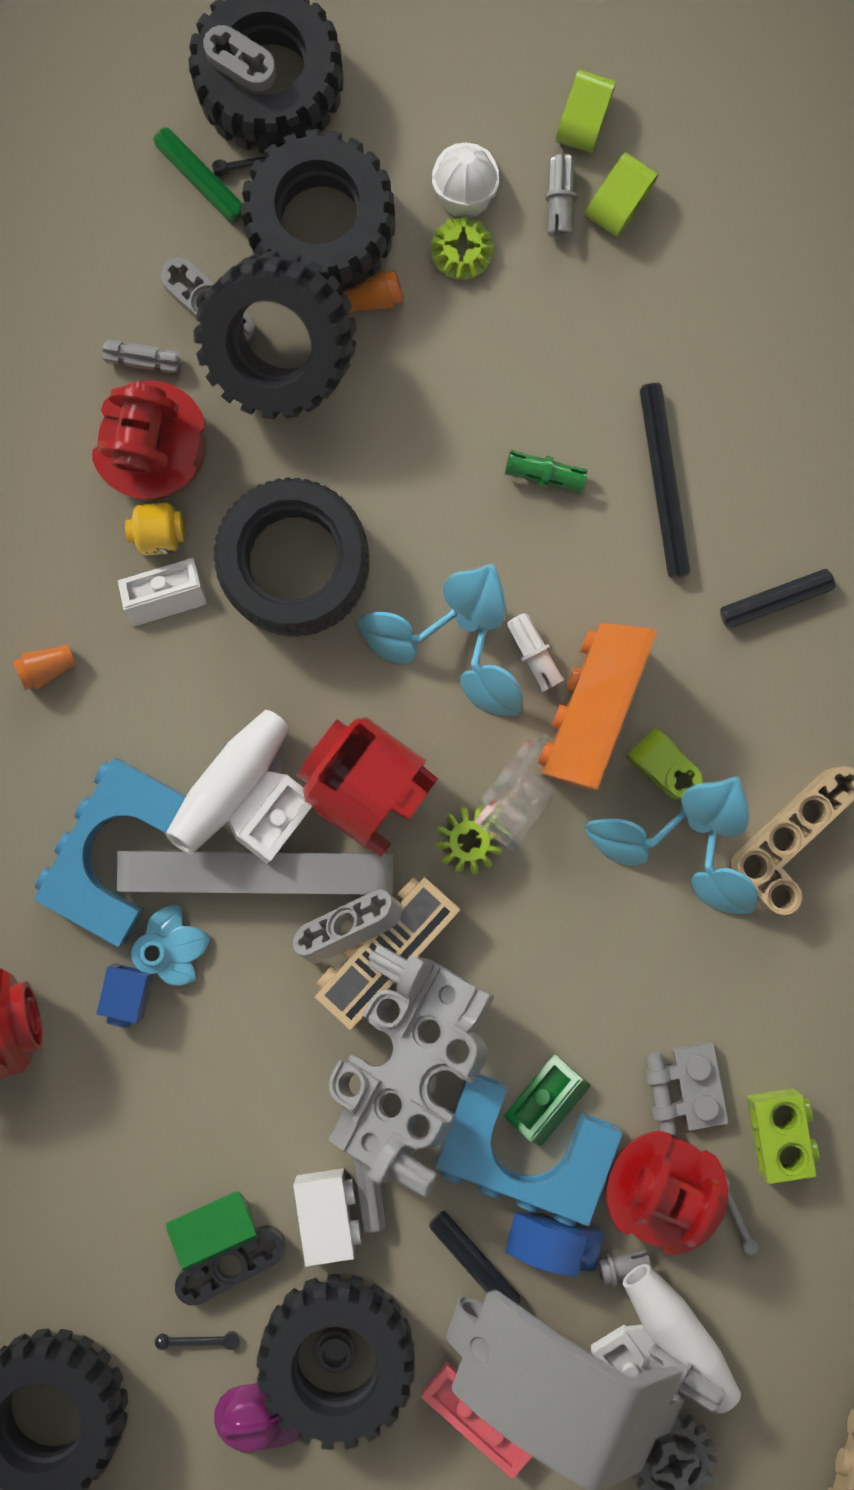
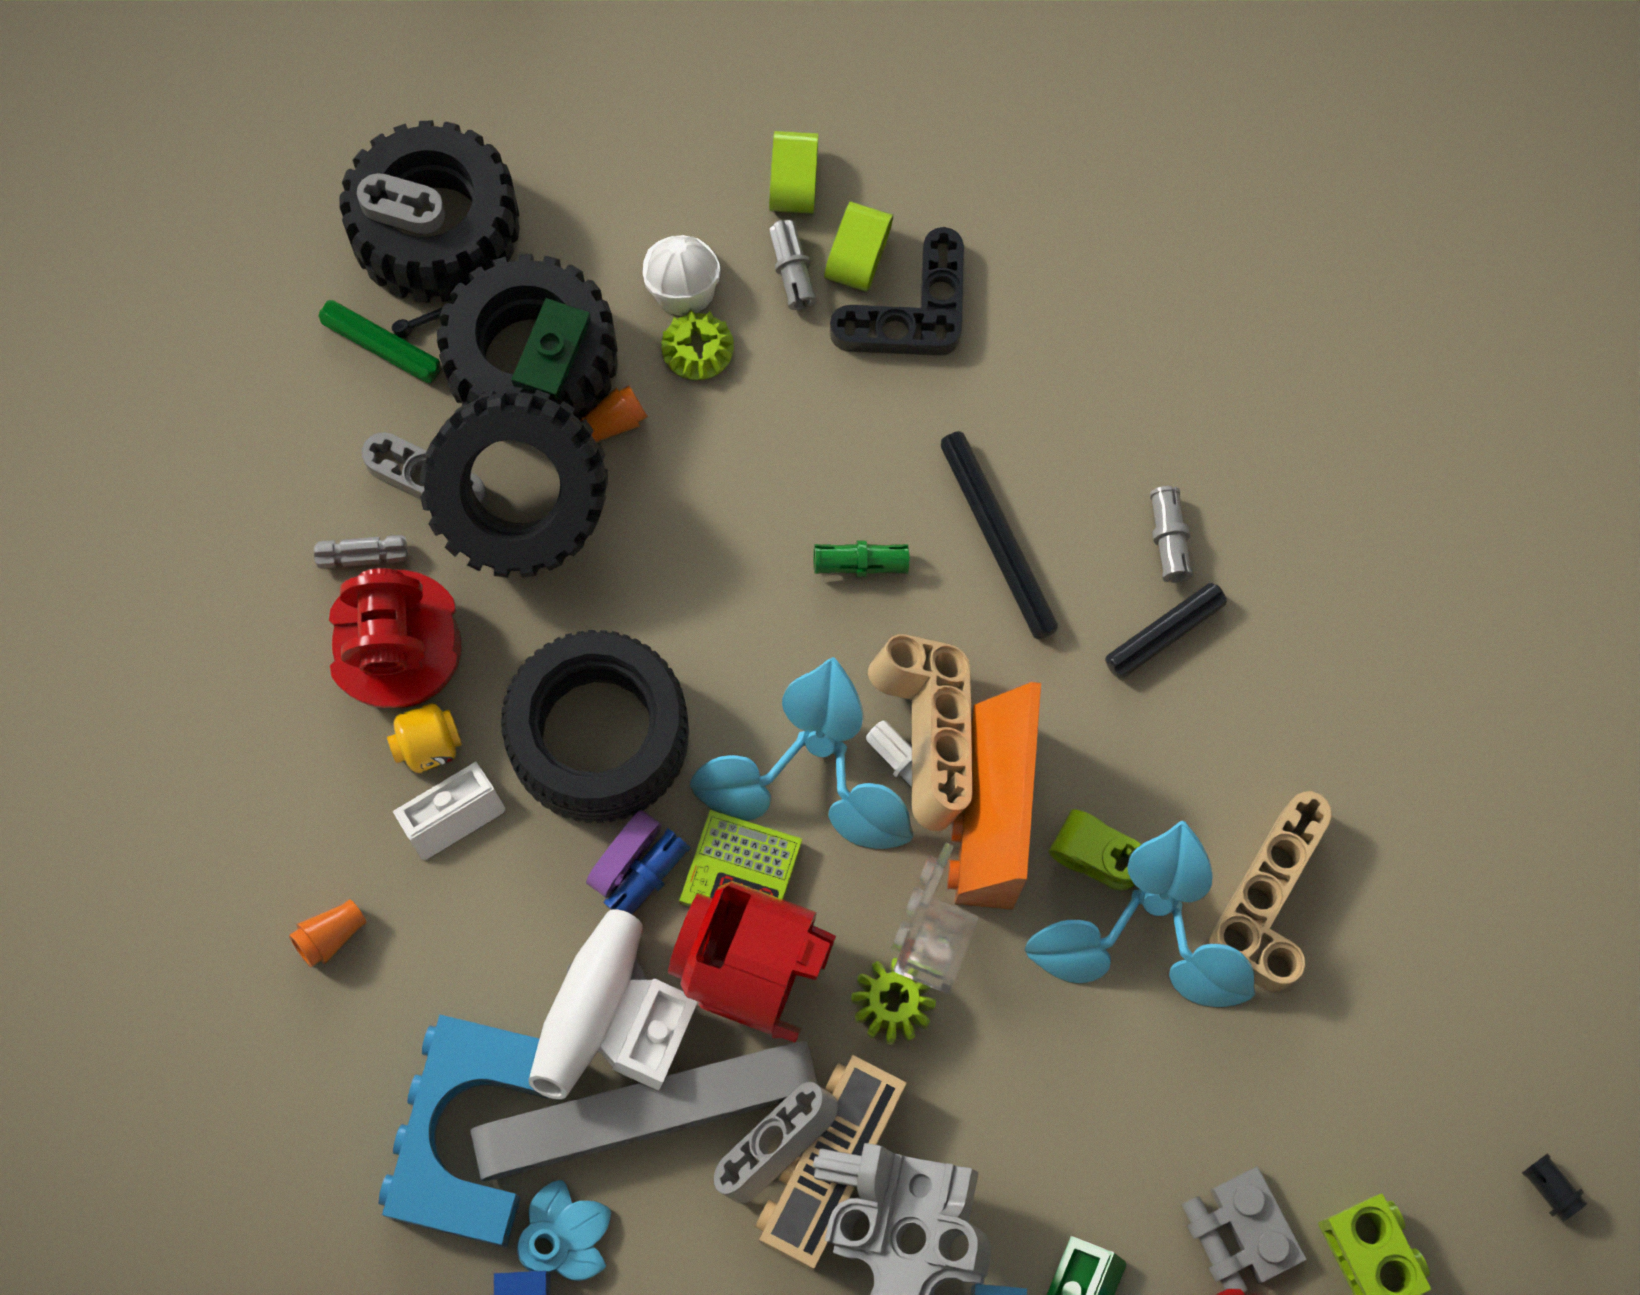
camera: 20 degrees left, 15 degrees down
(289, 665) = (627, 846): none -> medium lavender beam
(304, 687) = (648, 873): none -> blue pin
(334, 225) = (551, 348): none -> dark green plate
(382, 695) = (743, 854): none -> lime tile
(552, 685) = (940, 691): none -> tan beam
(665, 271) = (930, 314): none -> black beam
(807, 518) = (1171, 534): none -> light grey pin

